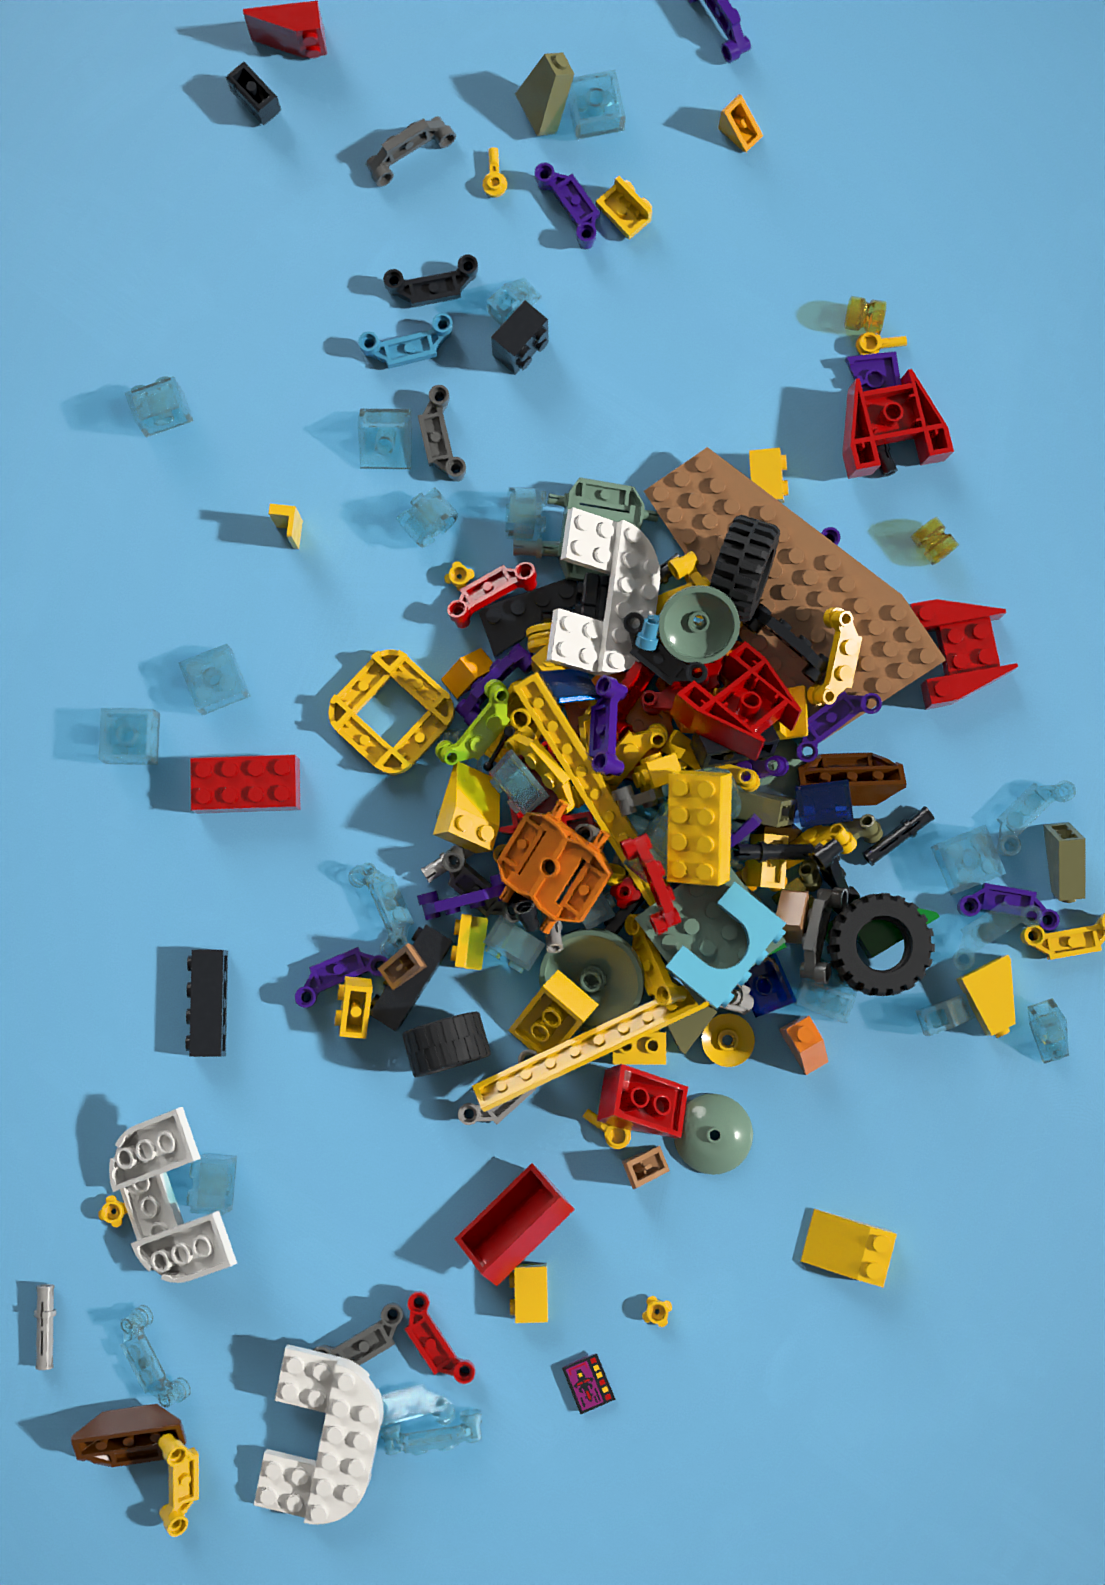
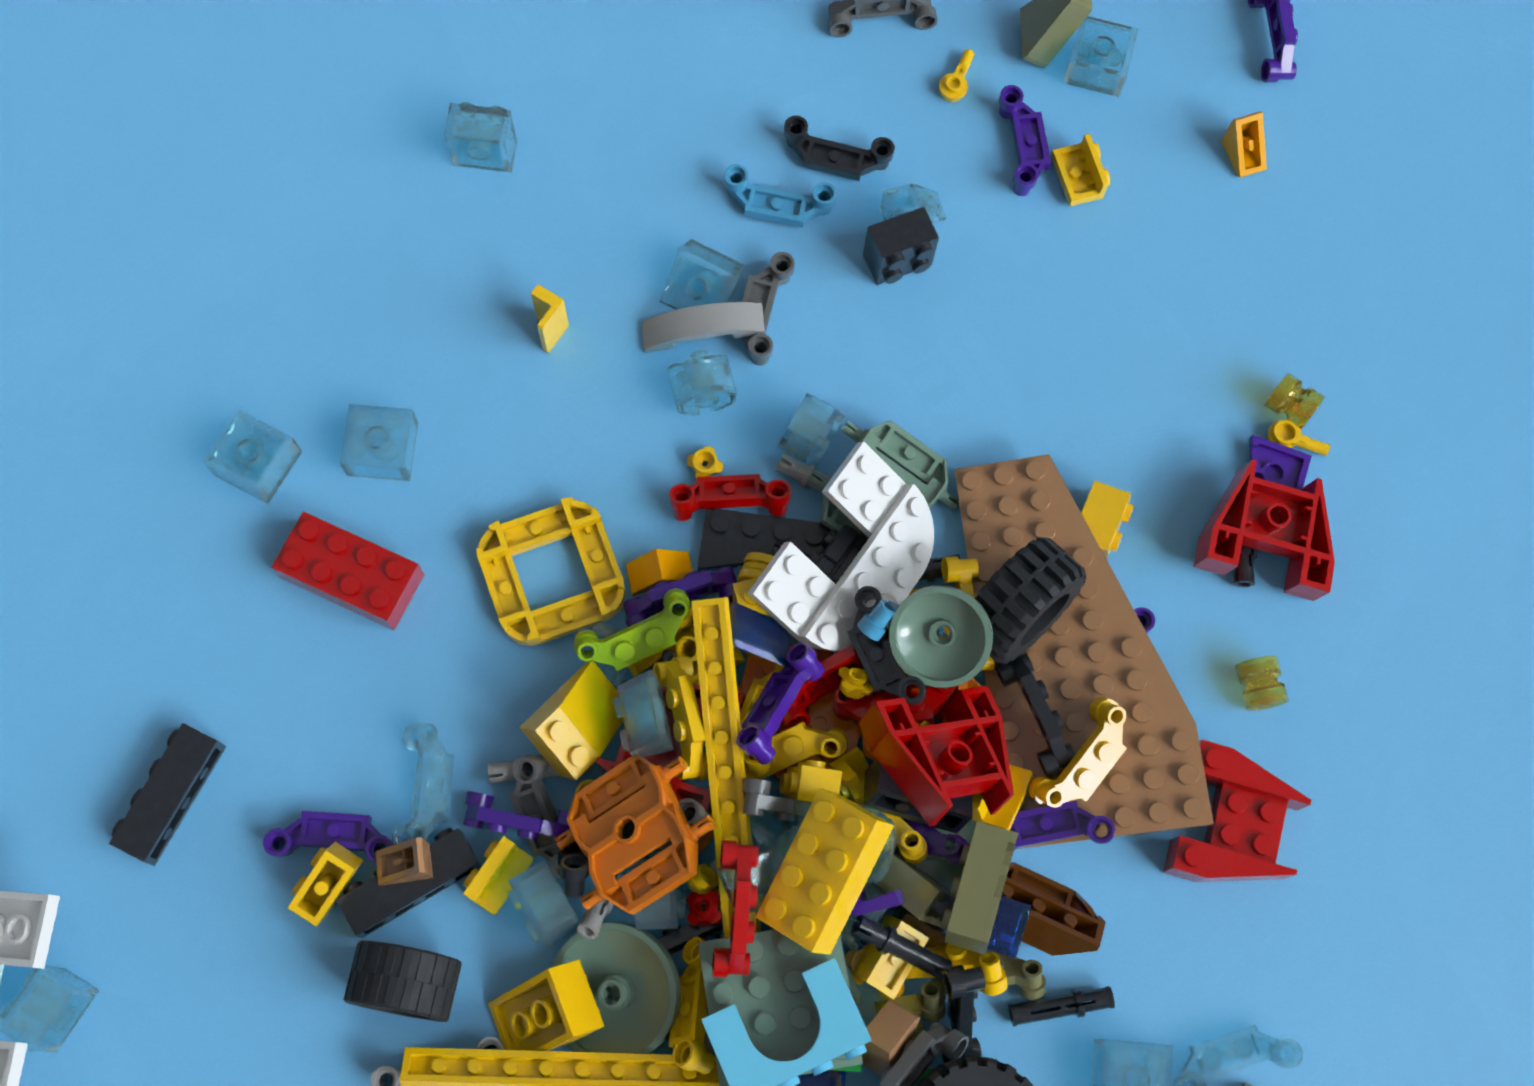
camera: 20 degrees right, 10 degrees down
(403, 470) = (701, 322): none -> light grey slope
(652, 685) = (854, 682): none -> yellow plate
(807, 785) = (979, 888): none -> olive wedge

